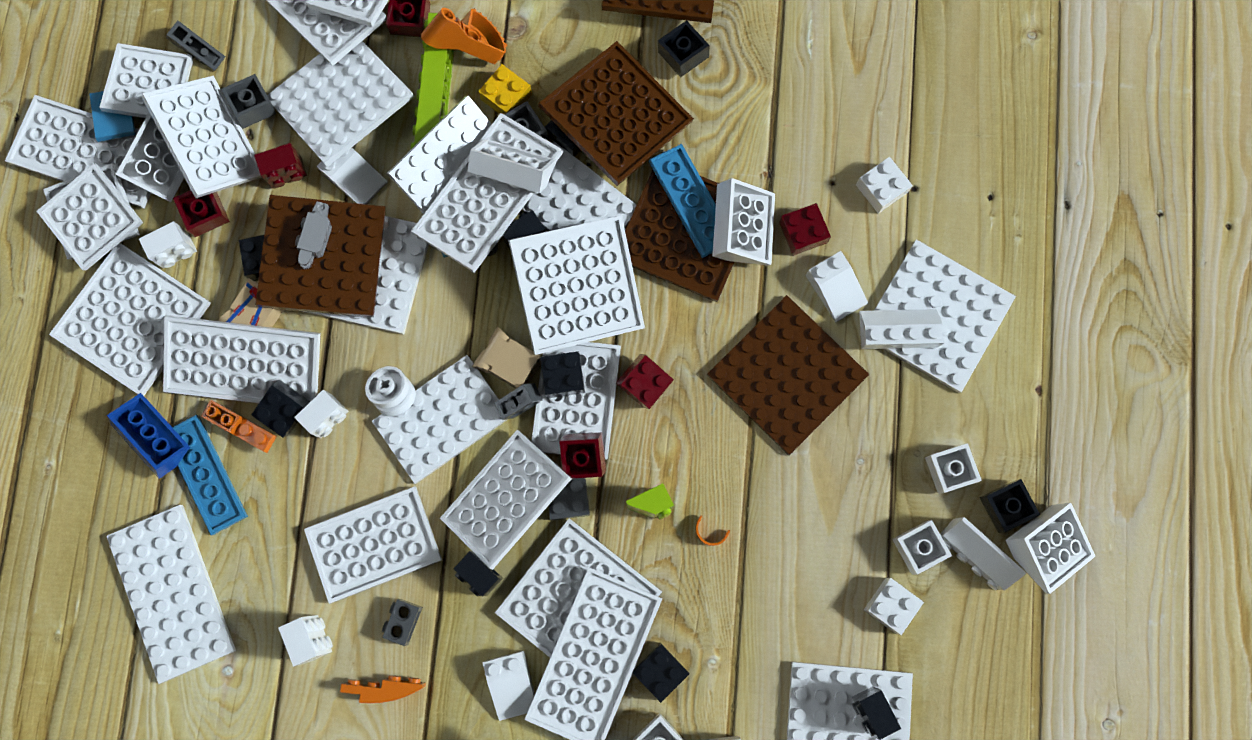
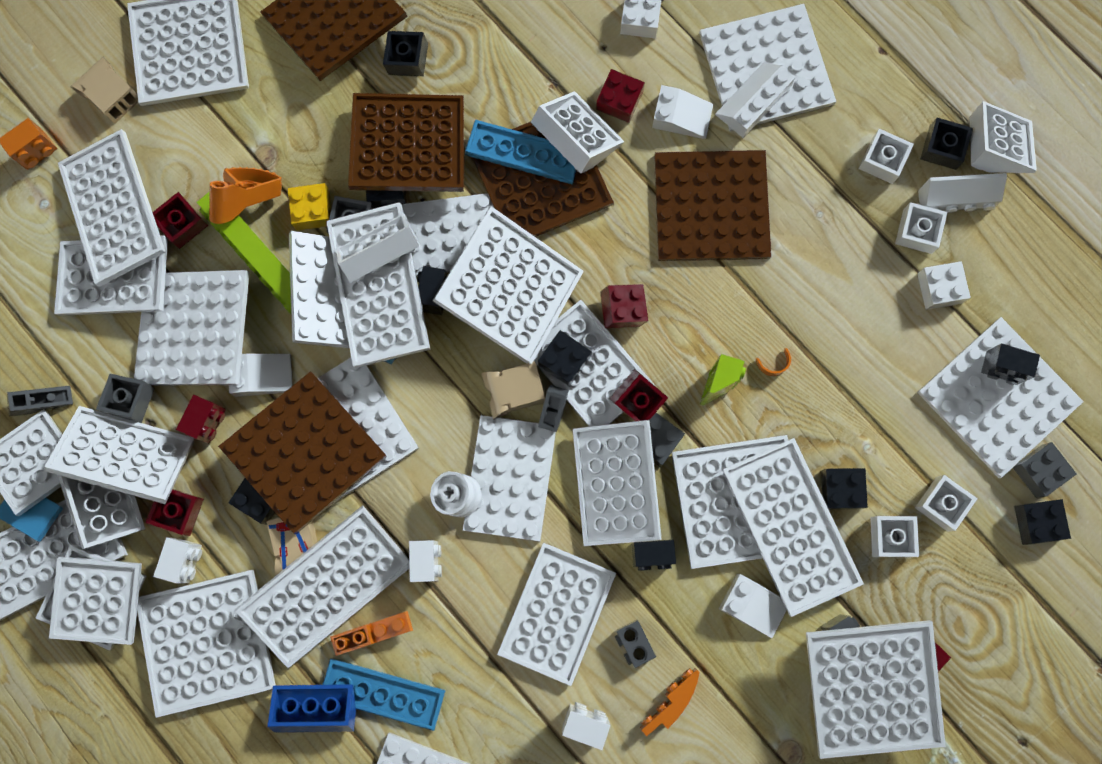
camera: 45 degrees left, 0 degrees up
(279, 408) = (390, 588): black brick -> none
(314, 235) = (284, 440): light grey hinge -> none

